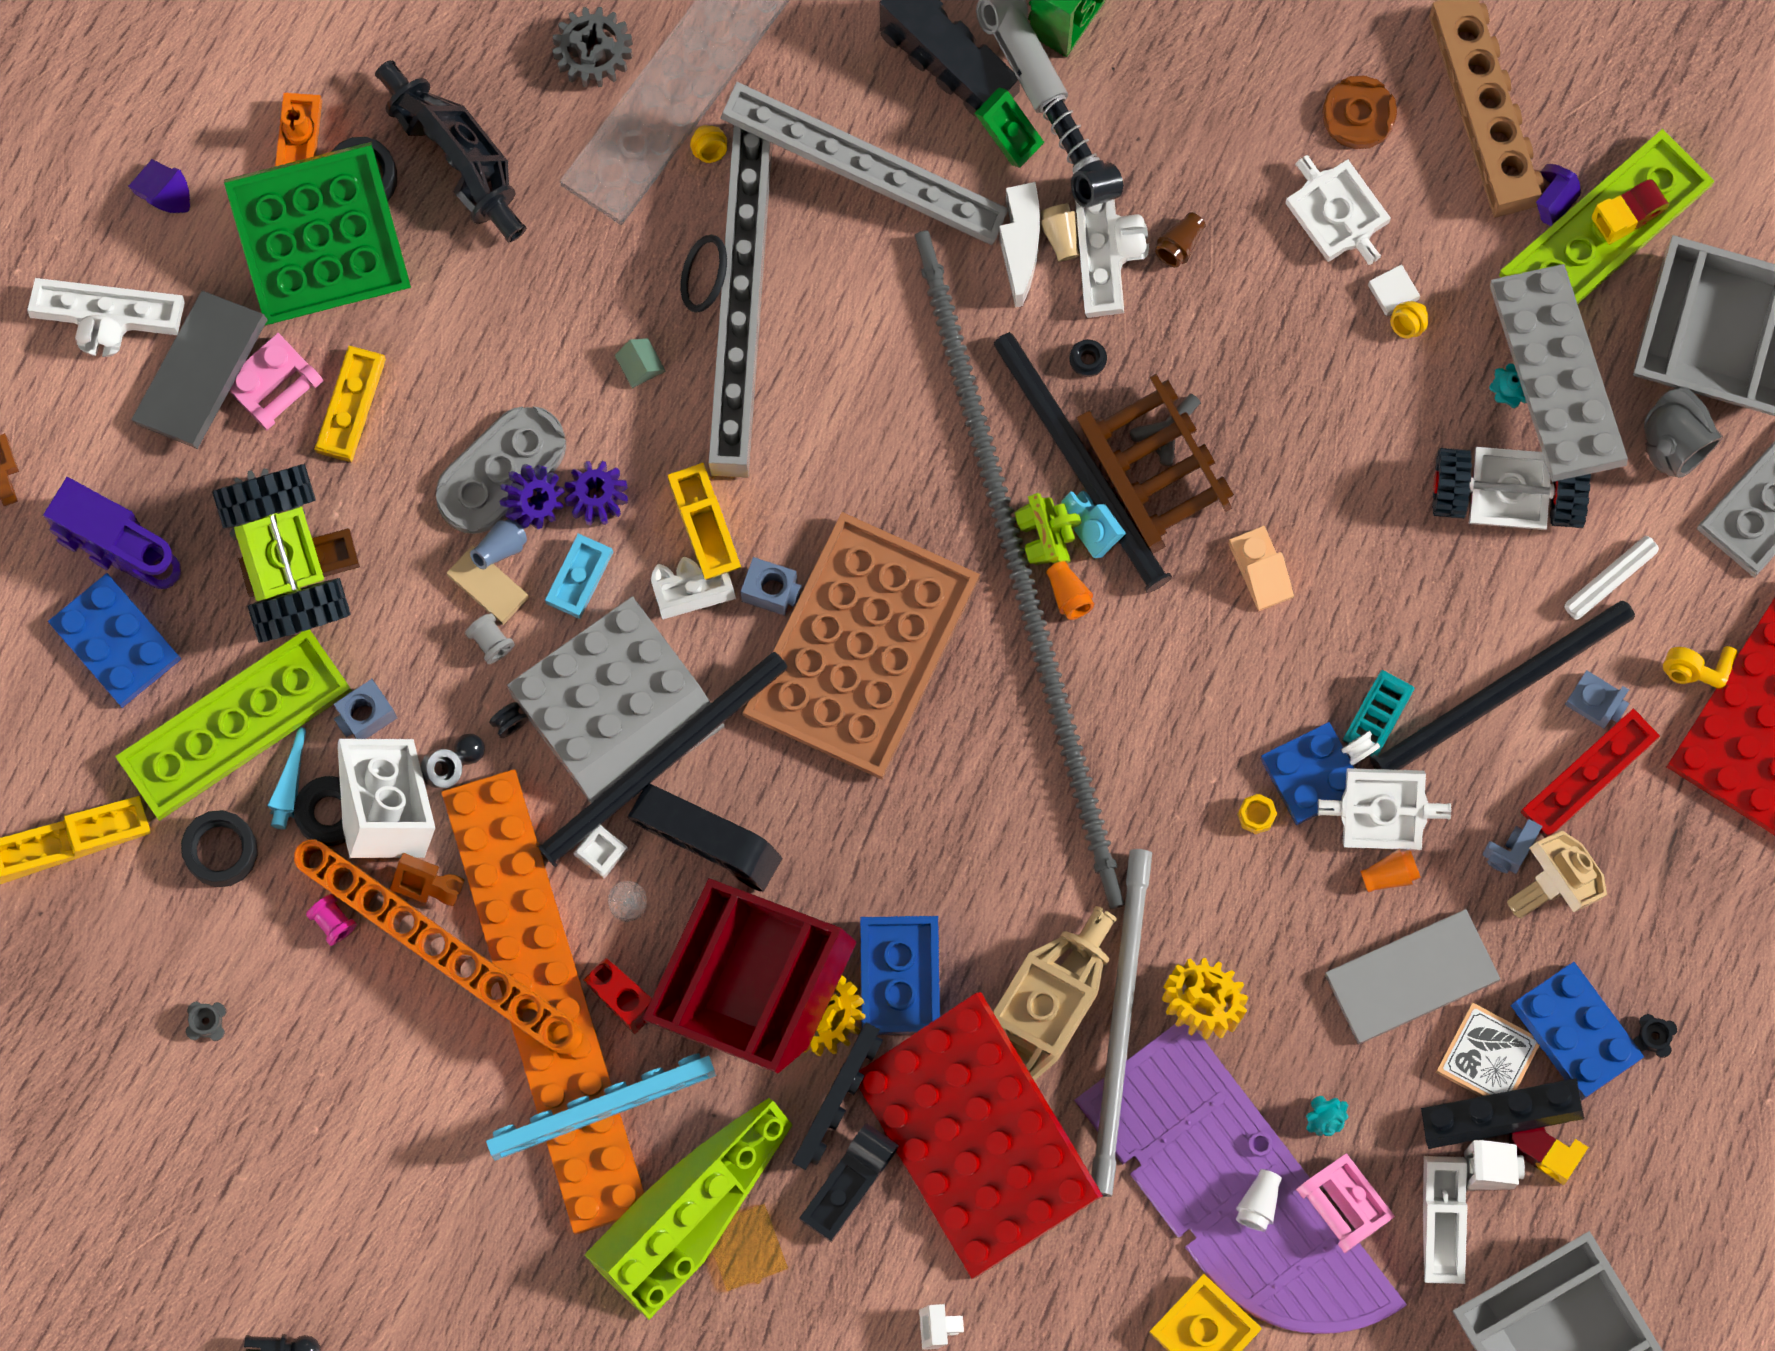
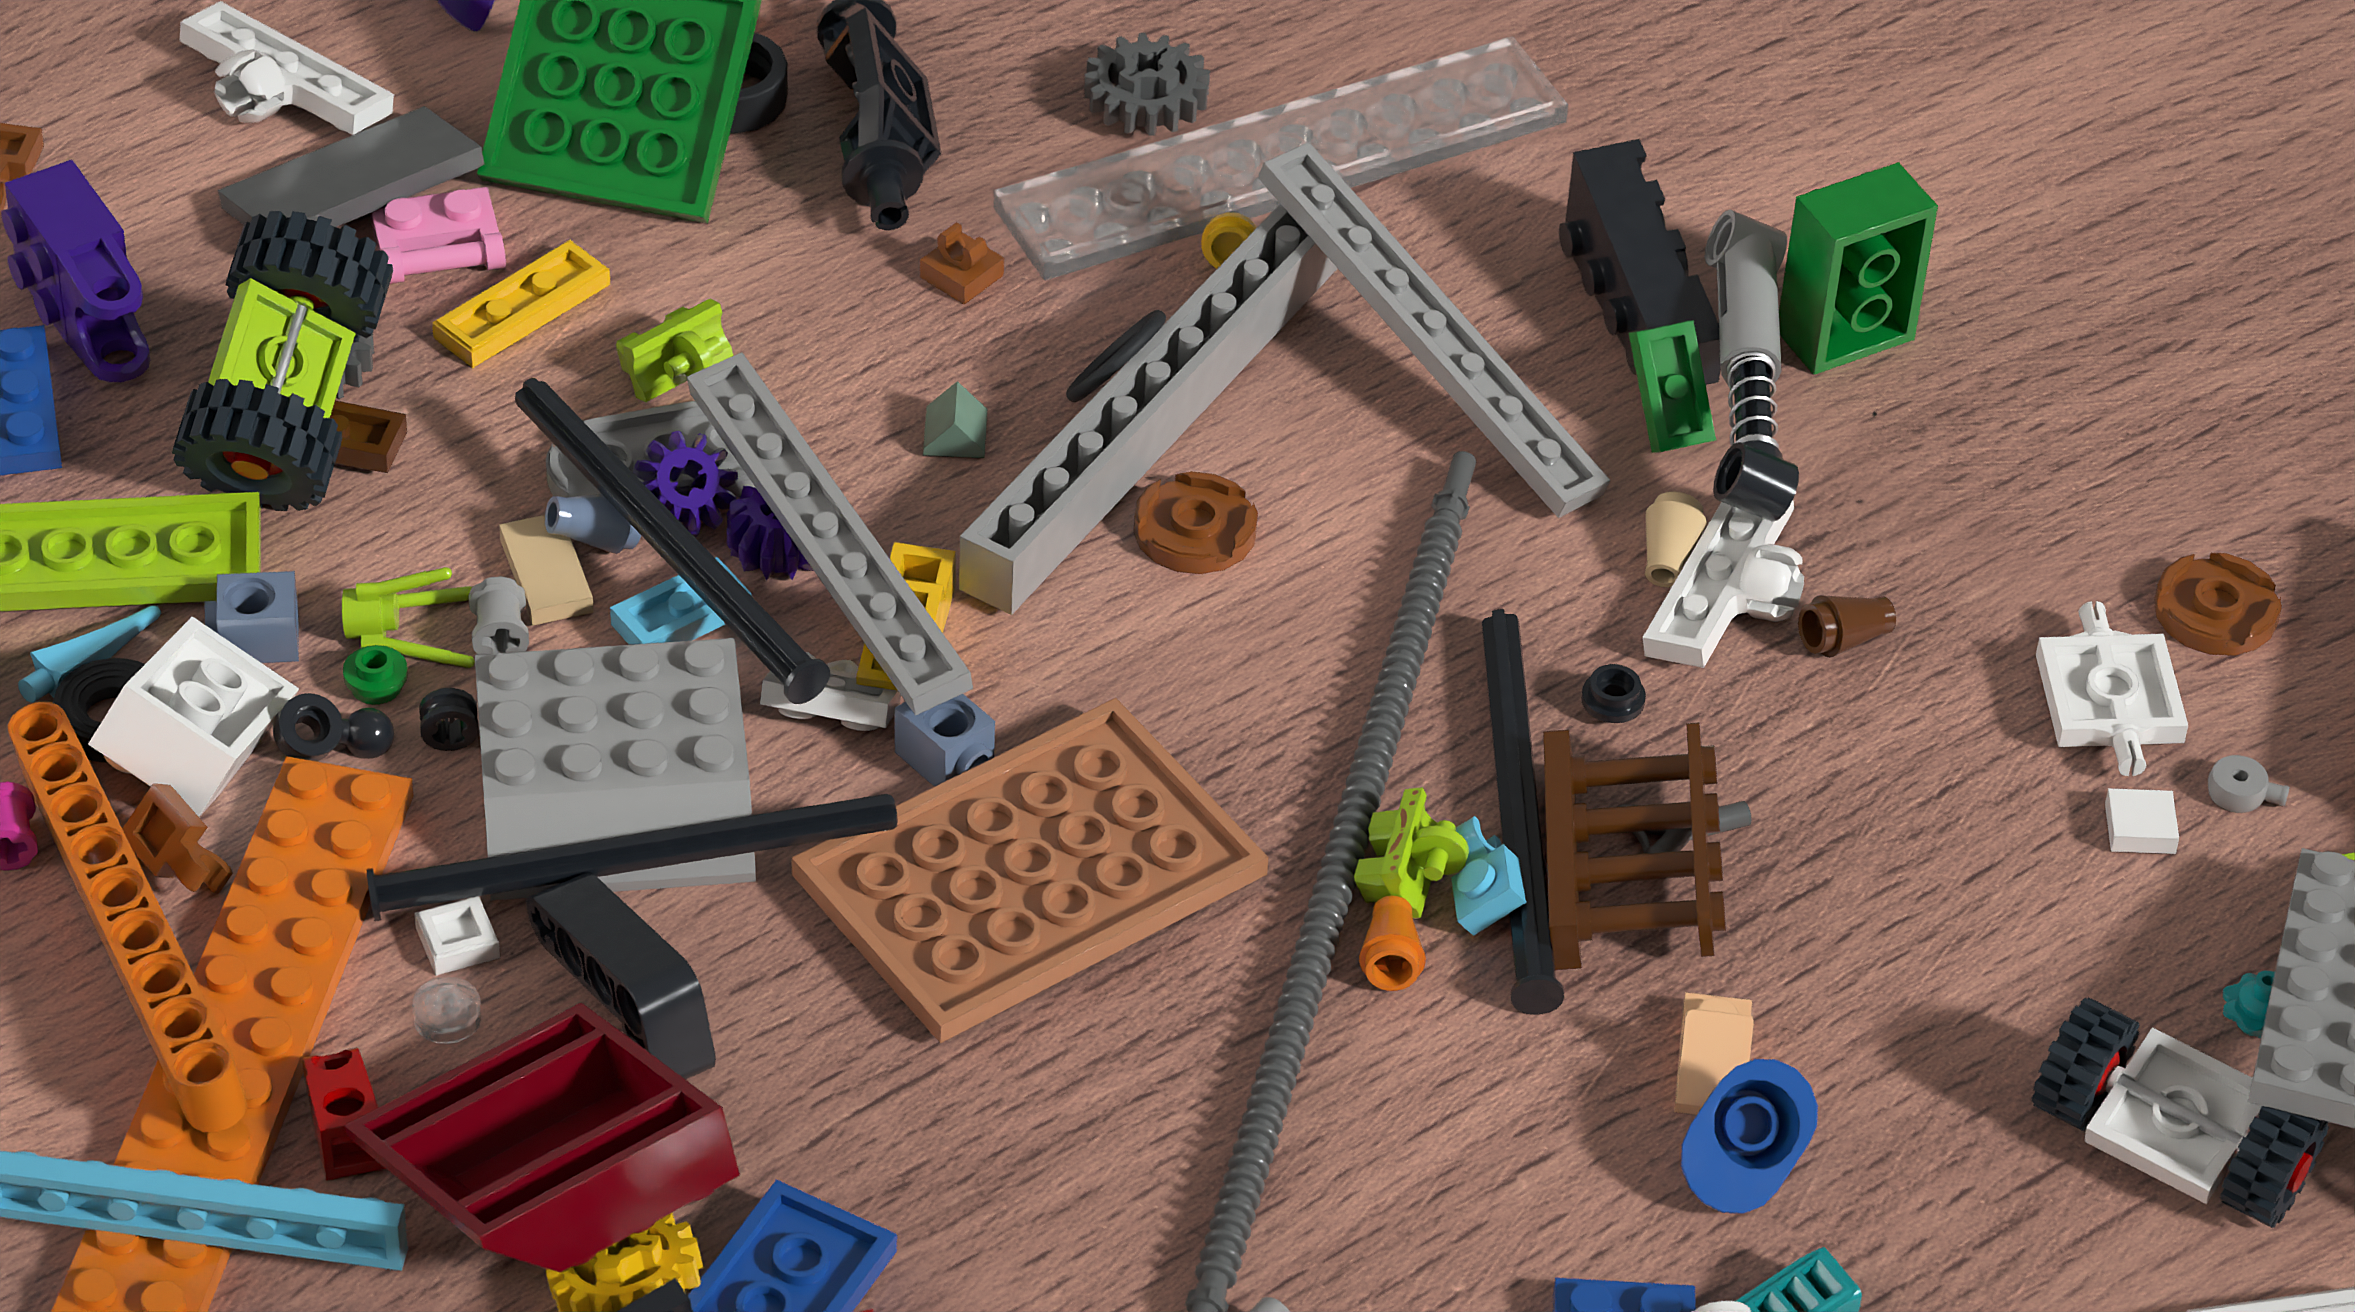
camera: 25 degrees right, 30 degrees down
(420, 667) = (375, 606): none -> lime plant
(447, 719) = (375, 674): none -> green plate
(464, 396) = (675, 349): none -> lime hips
(554, 546) = (799, 674): none -> black axle
(571, 241) = (961, 265): none -> dark orange tile
(638, 498) = (830, 534): none -> light grey plate
(805, 357) = (1195, 523): none -> dark orange tile
(1021, 238) = (1605, 522): white slope -> none
(1312, 622) = (1749, 1135): none -> blue piece
(1409, 319) = (2144, 858): yellow plate -> none
(1437, 231) = (2242, 785): none -> light grey piece

